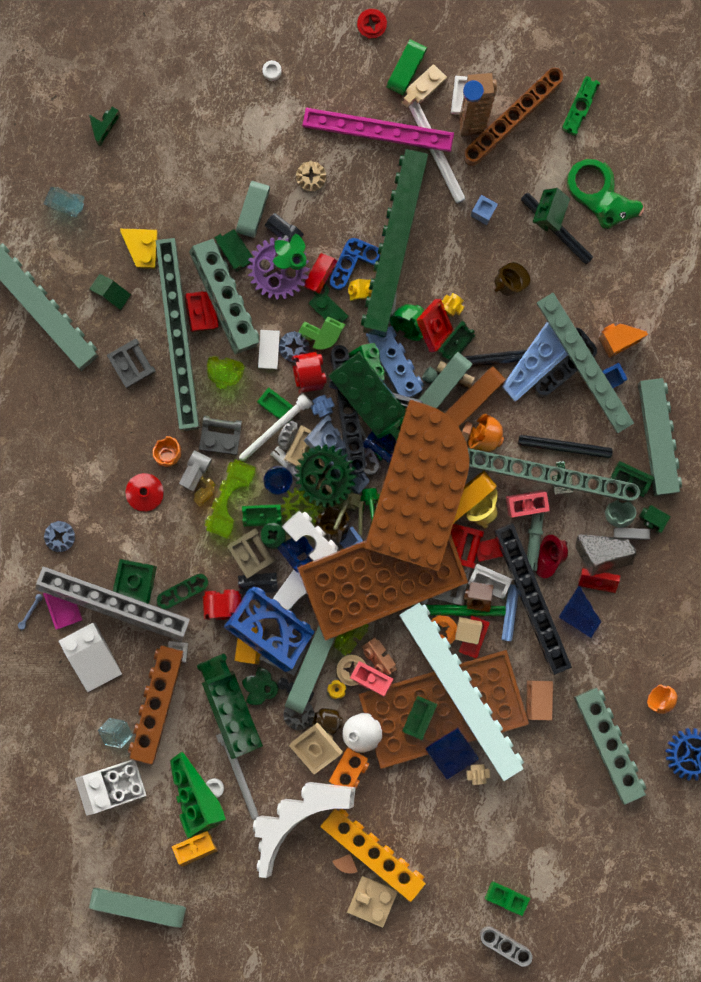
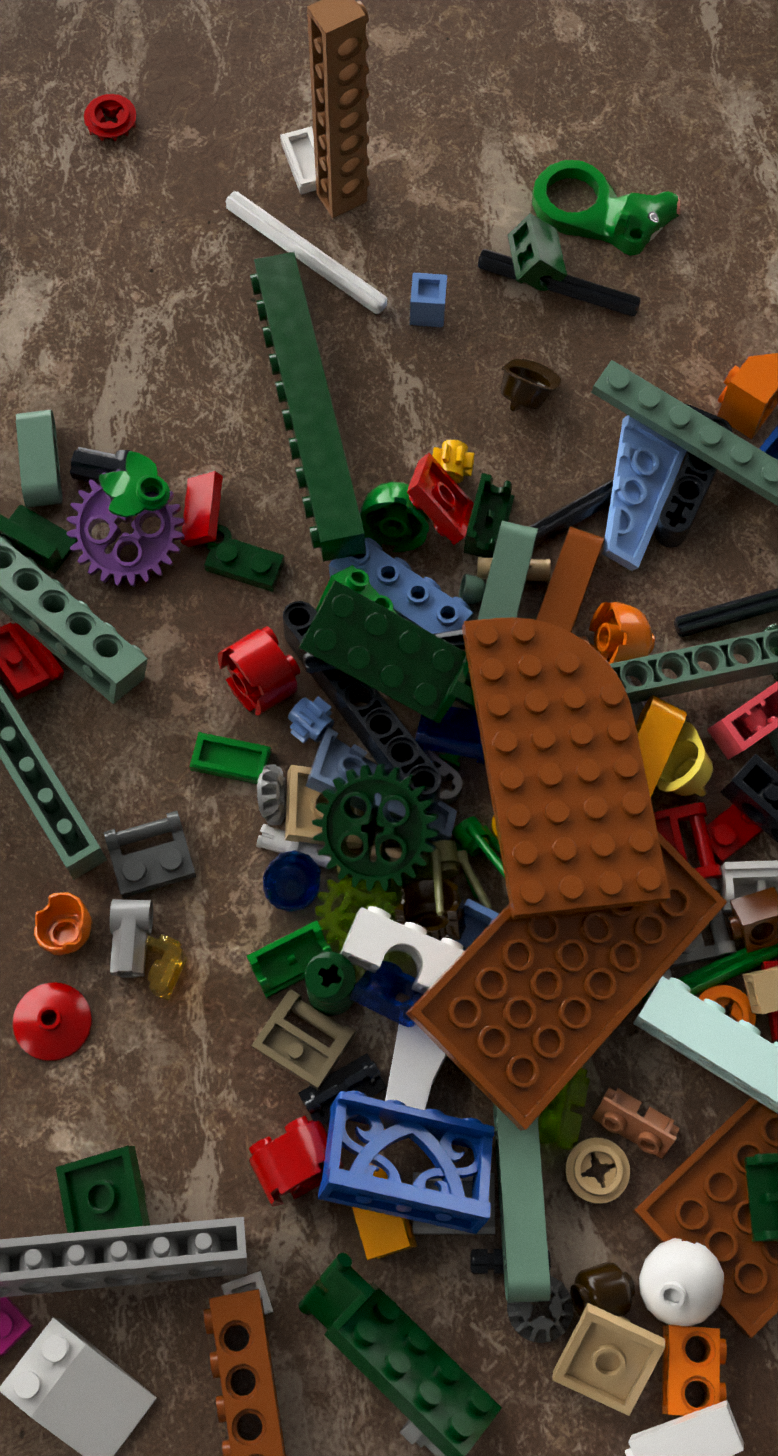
camera: 25 degrees left, 15 degrees down
(184, 583) = (231, 1154): dark green beam -> none
(224, 372) = (107, 738): clear neon green cylinder -> none
(239, 476) = (217, 909): clear neon green arch -> none
(257, 687) = (433, 1290): dark green plate -> none
(268, 349) = (171, 671): white tile -> none
(287, 340) = (204, 660): sand blue gear -> none
(302, 404) = (273, 728): white piece -> none
(317, 181) = (109, 383): tan gear -> none
(325, 336) = (263, 598): bright green brick -> none
(331, 689) = (597, 1216): yellow plate -> none
(353, 257) = (247, 462): blue beam -> none
(359, 289) = (282, 504): yellow bracket -> none
(371, 679) = (645, 1166): coral slope -> none
(378, 130) = (194, 256): dark pink tile -> none
(406, 67) = (196, 152): green beam -> none
(424, 86) = (238, 166): tan hinge -> none
(473, 91) = (329, 21): blue tile -> none
(516, 108) = (402, 154): dark orange beam -> none
(575, 116) = (499, 117): green piece -> none

